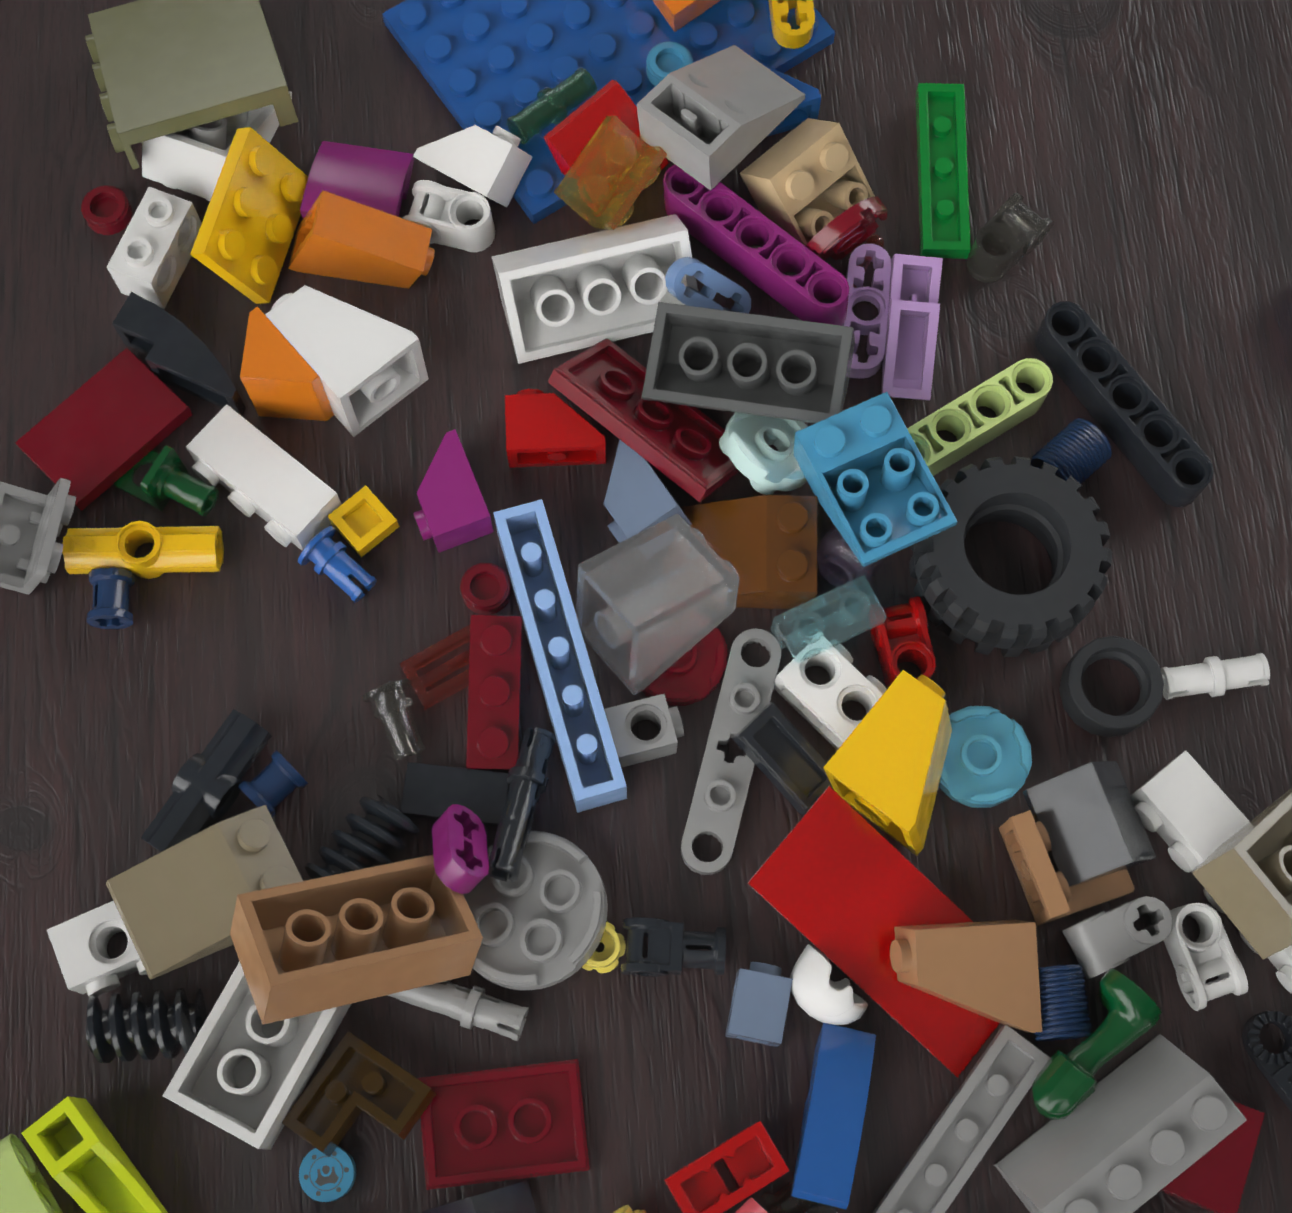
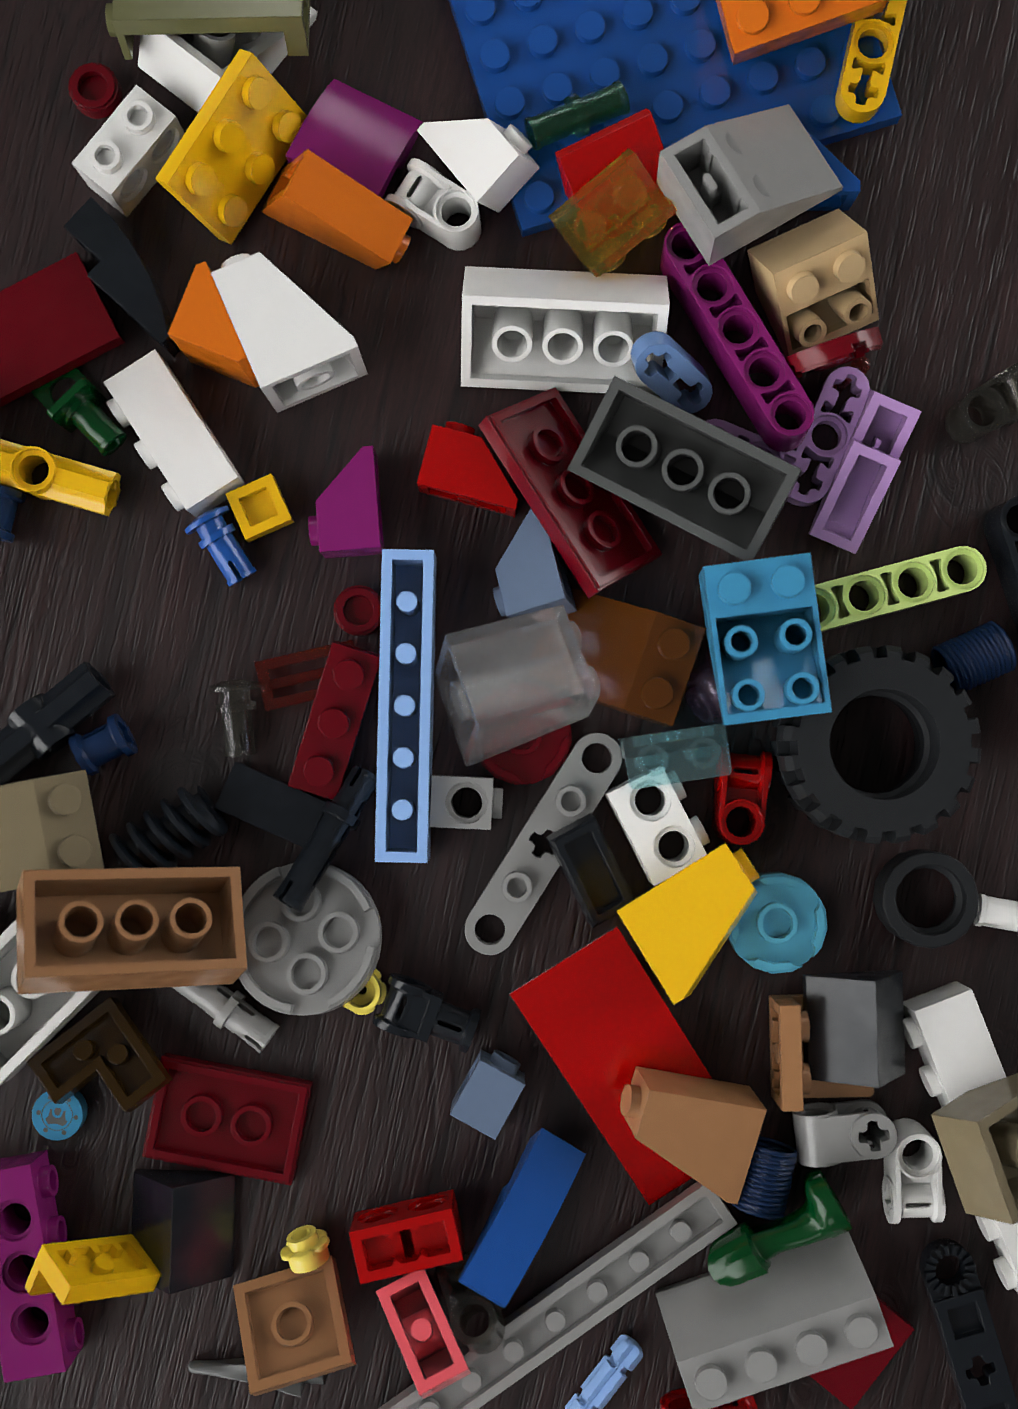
camera: 15 degrees right, 15 degrees up
(460, 849) = (249, 864): magenta beam -> none
(665, 59) = (713, 101): dark azure tile -> none
(747, 446) = (658, 569): light aqua plate -> none
(821, 997) = (551, 1103): white hair -> none
(942, 171) = (958, 307): green plate -> none

